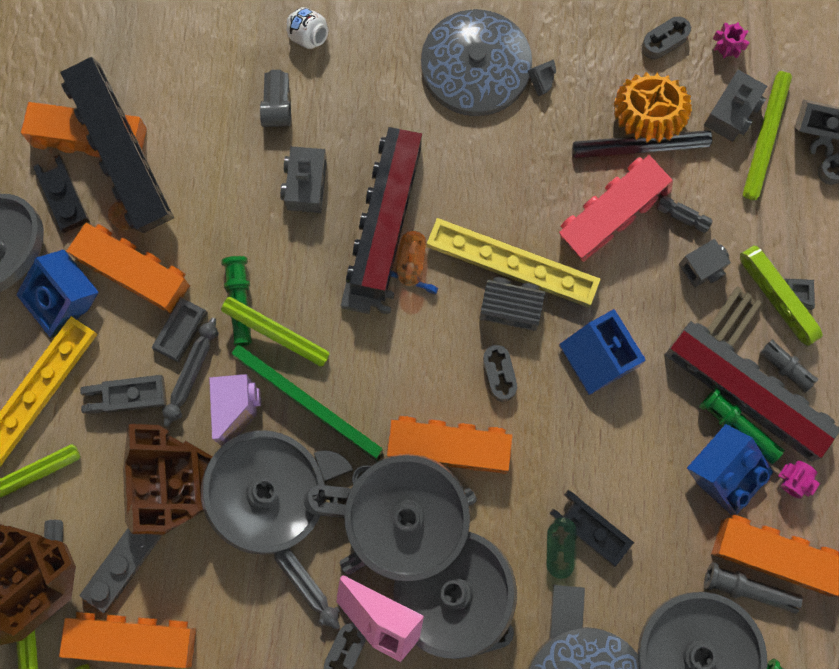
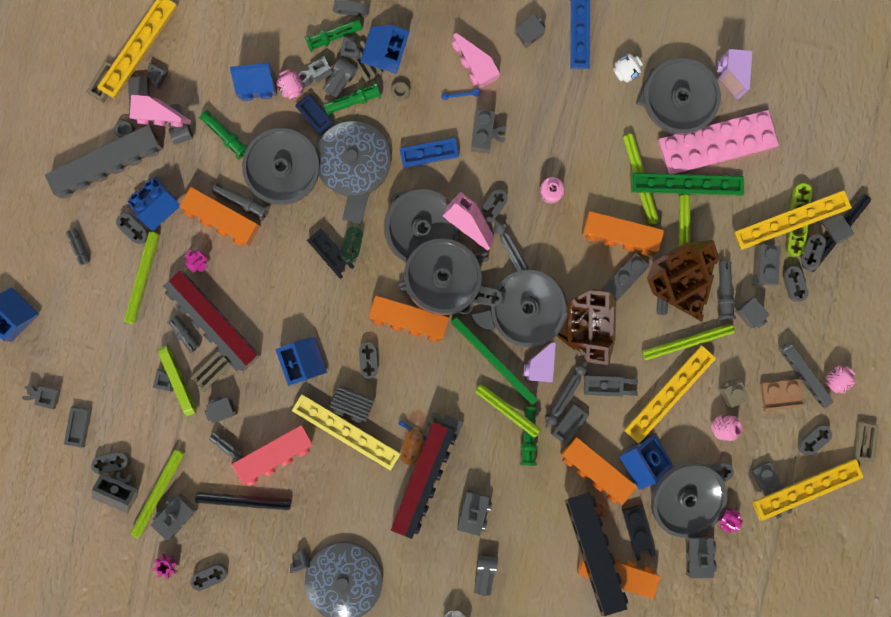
camera: 170 degrees left, 10 degrees up
(652, 107) = (220, 513): light orange gear -> none
(731, 415) = (228, 307): green pin -> none
(731, 469) = (236, 274): blue slope -> none

